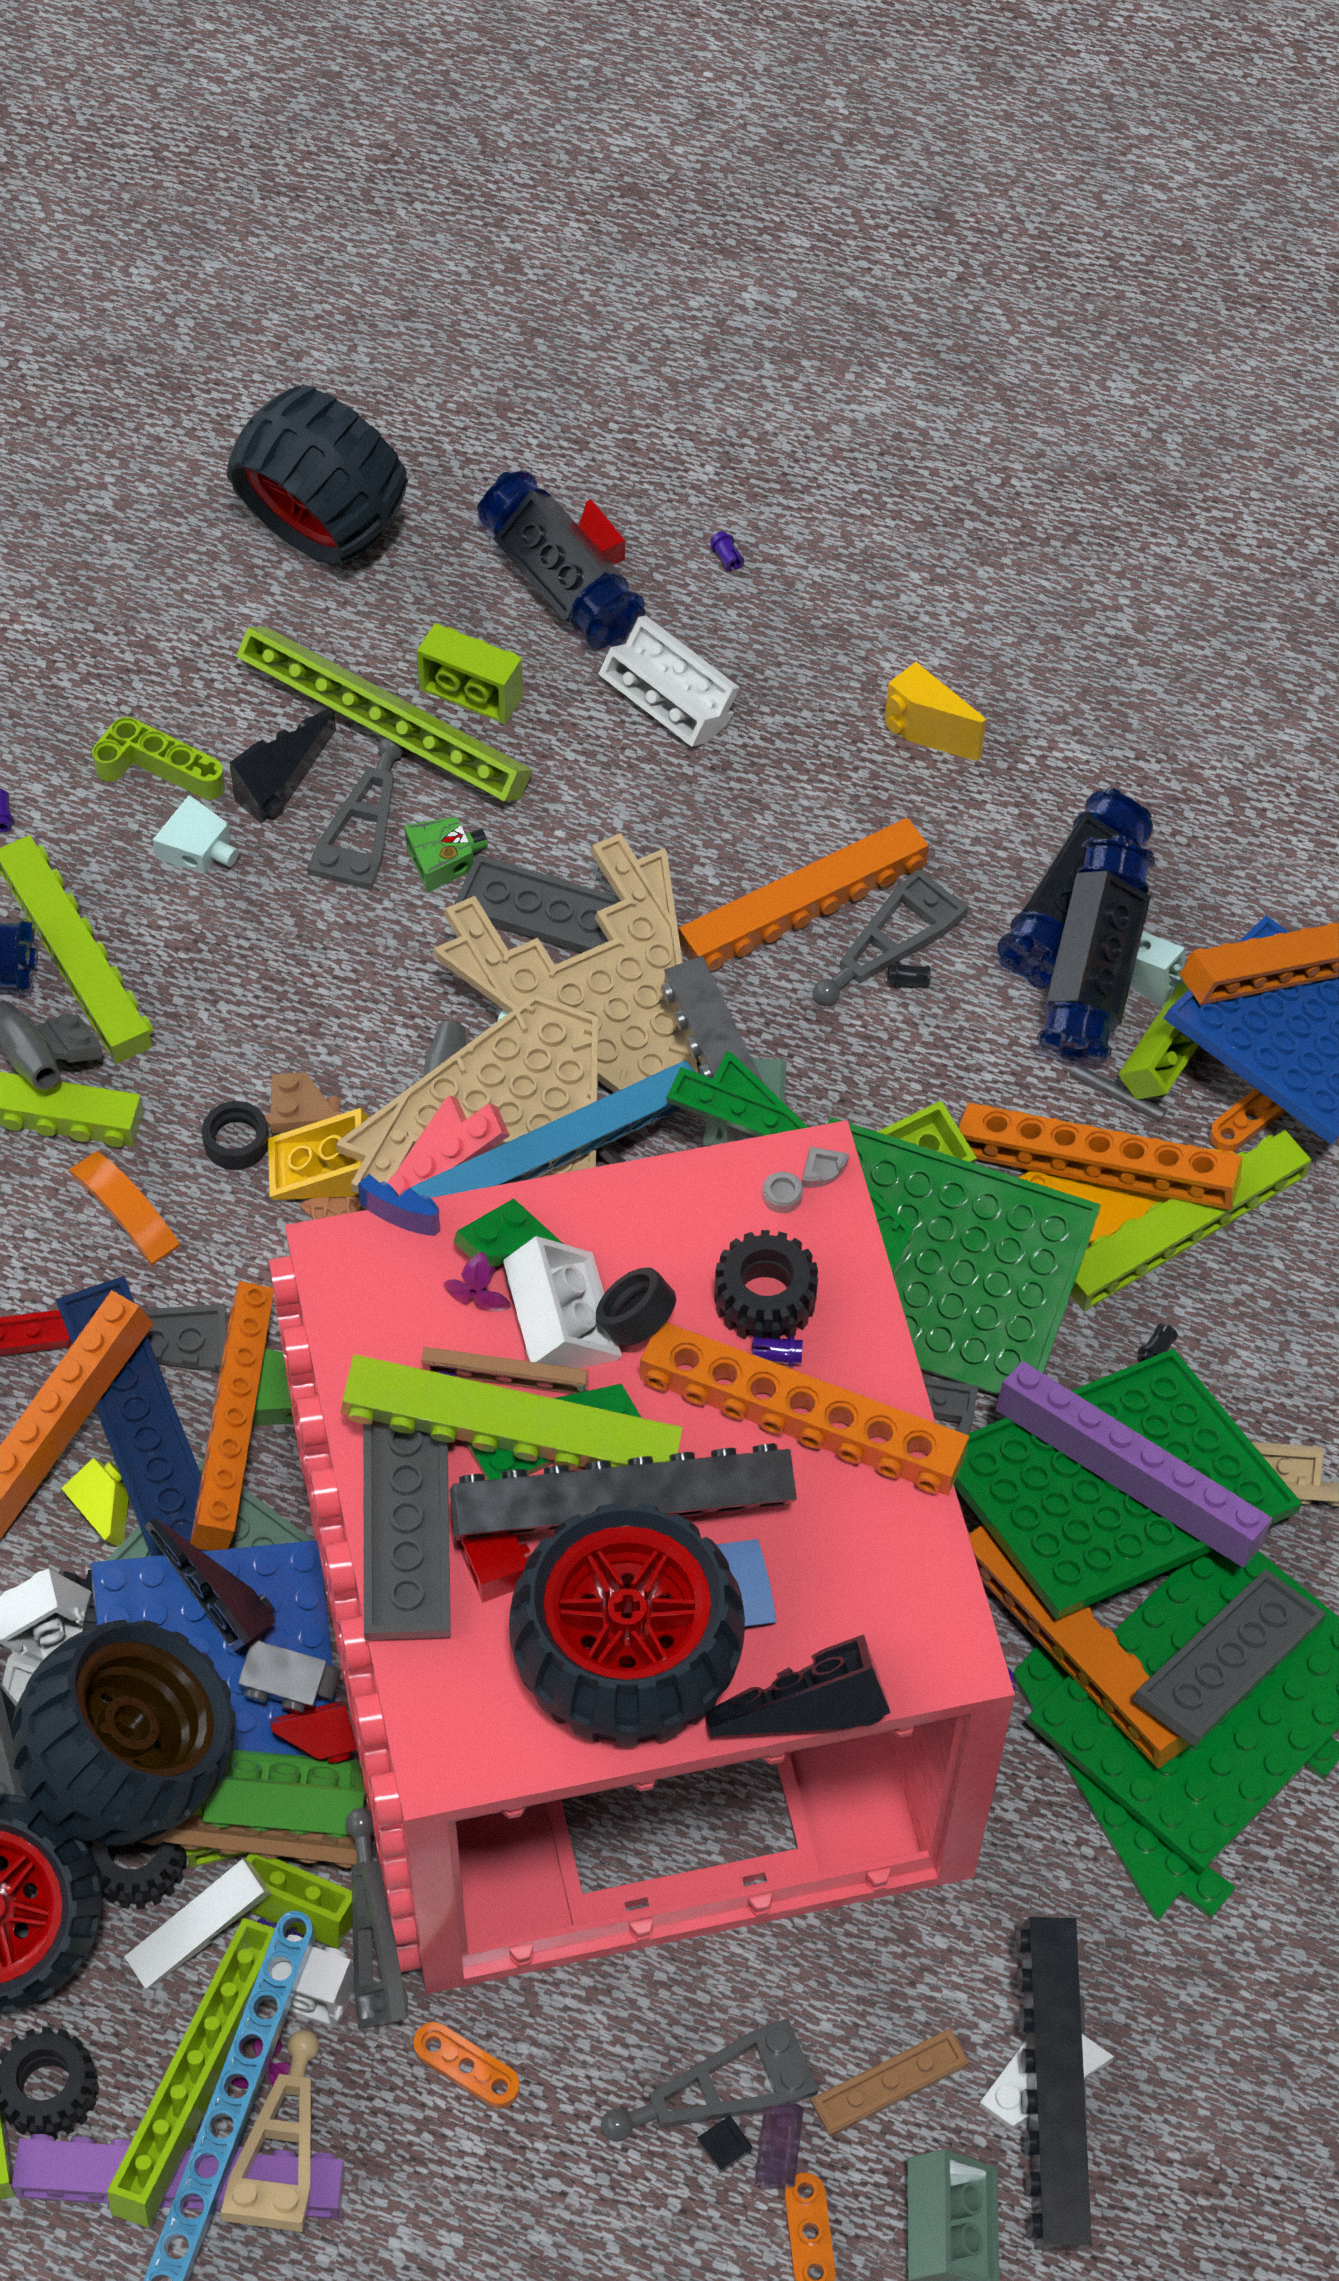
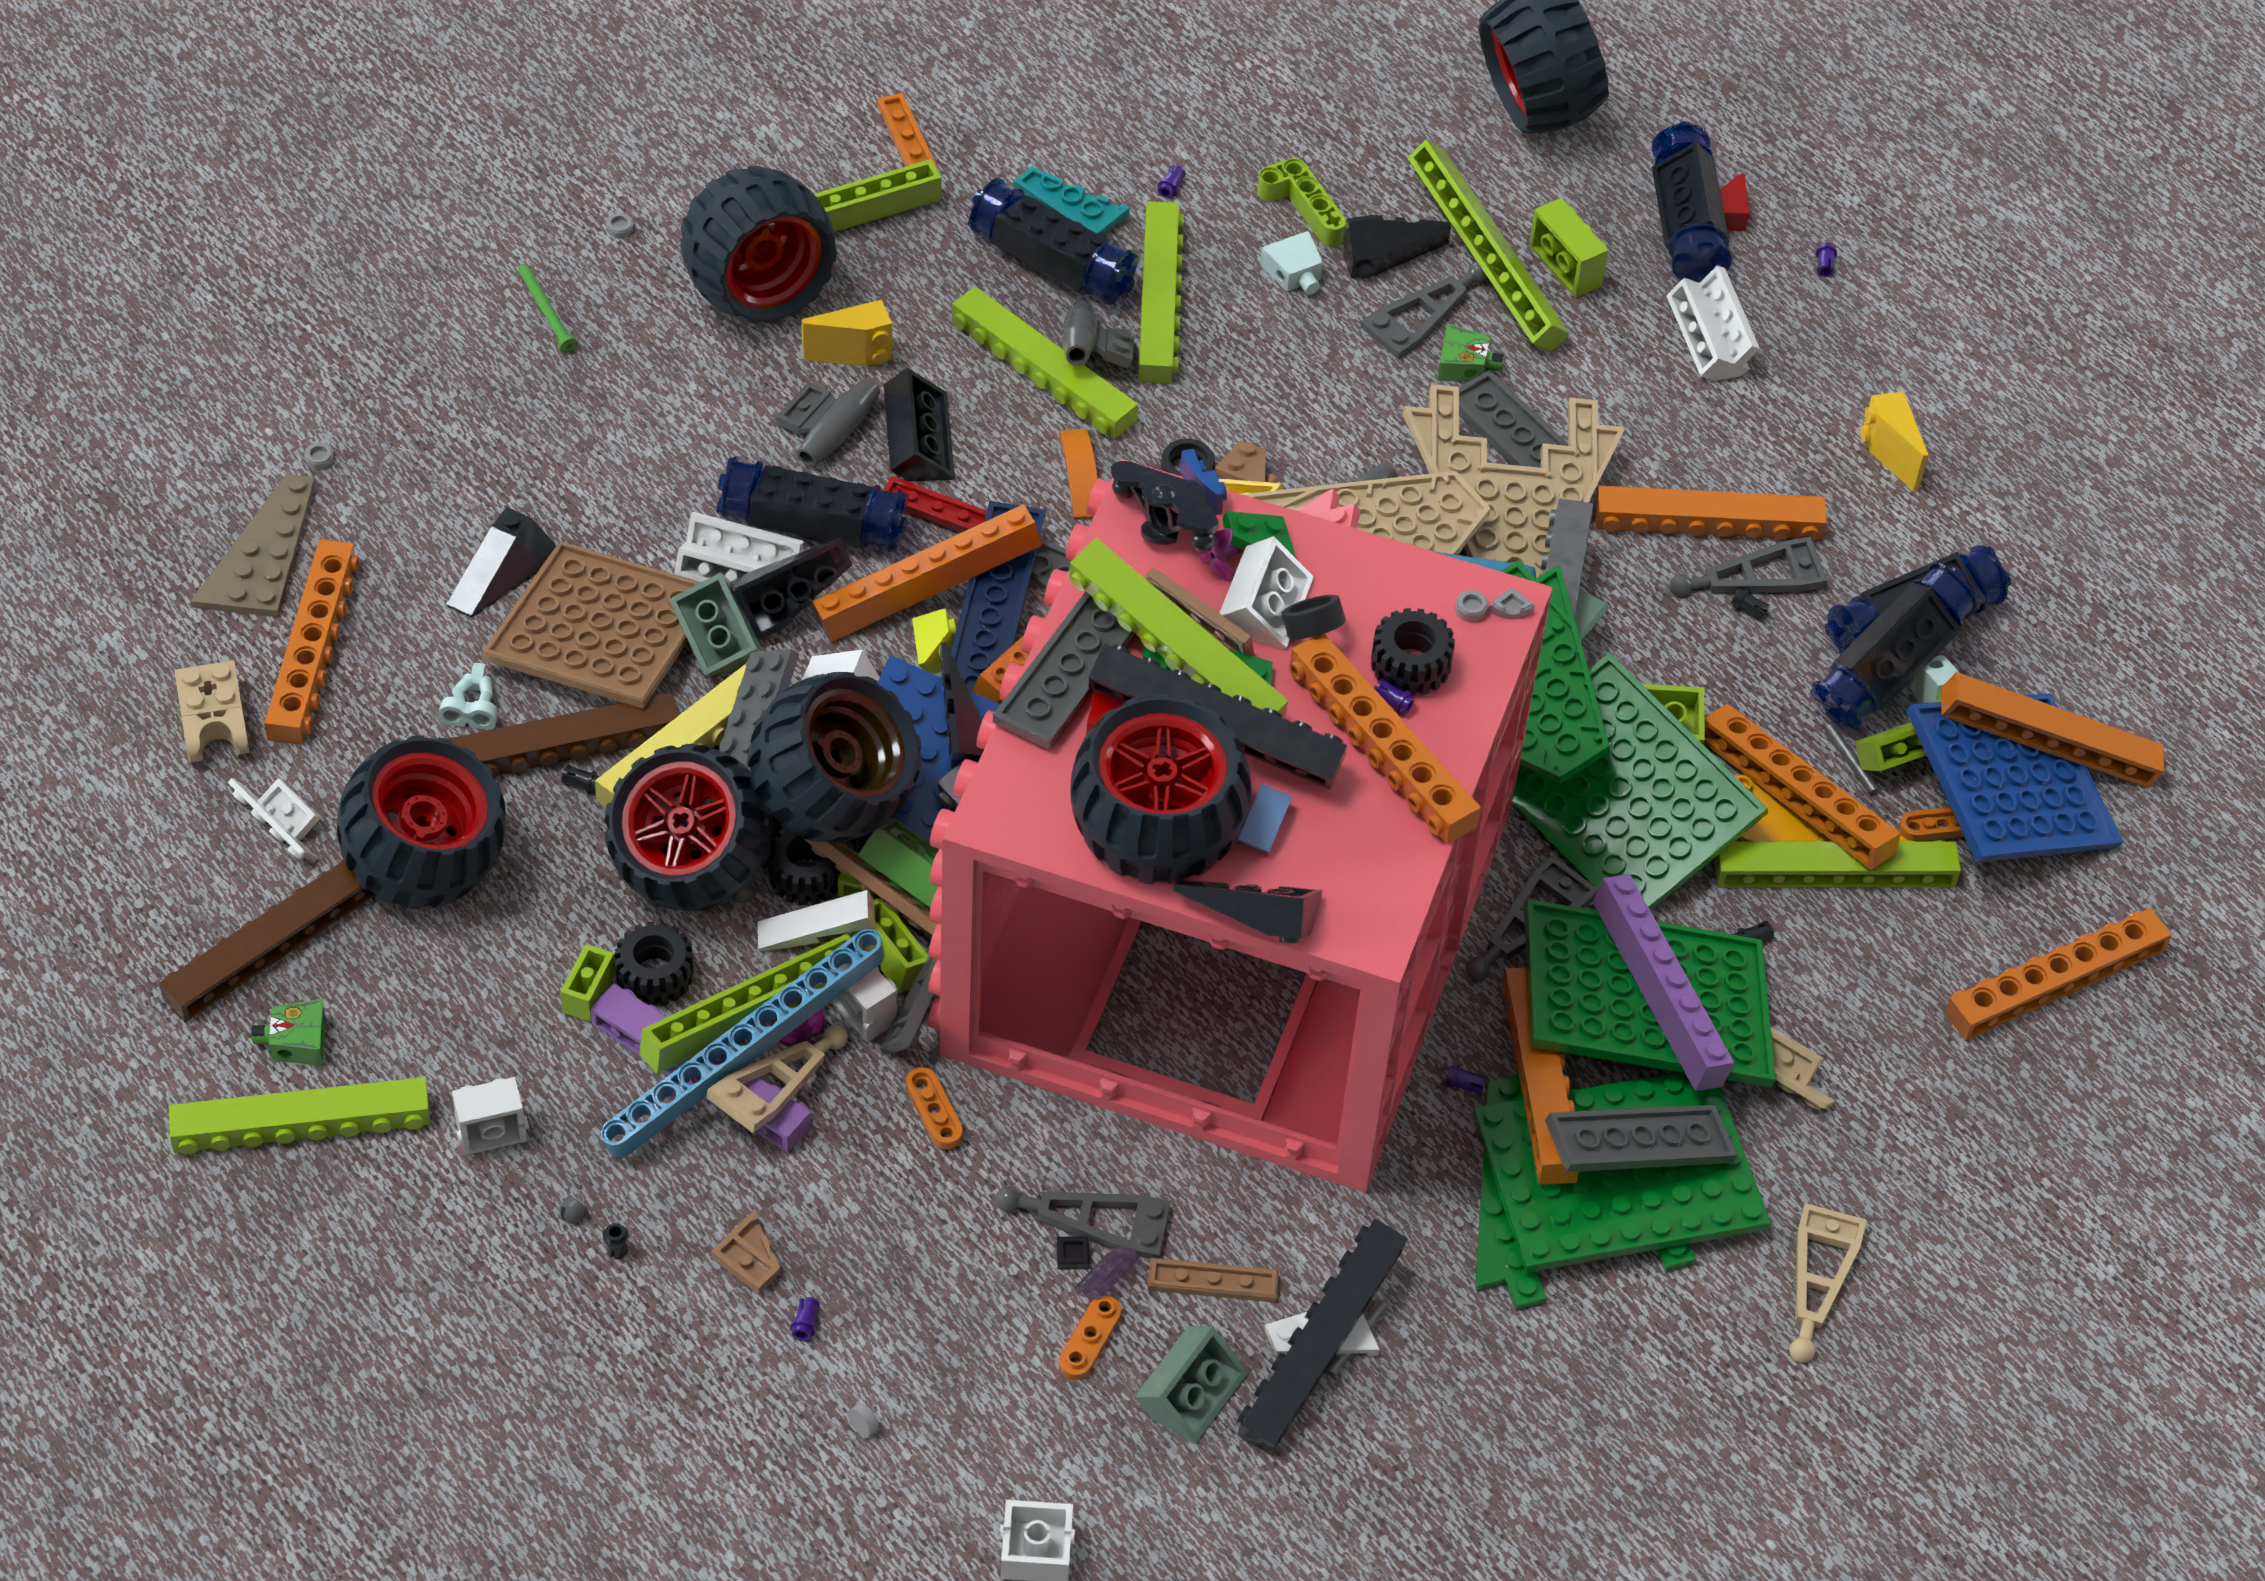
camera: 30 degrees right, 5 degrees down
(390, 1258) = (1167, 504): none -> black piece

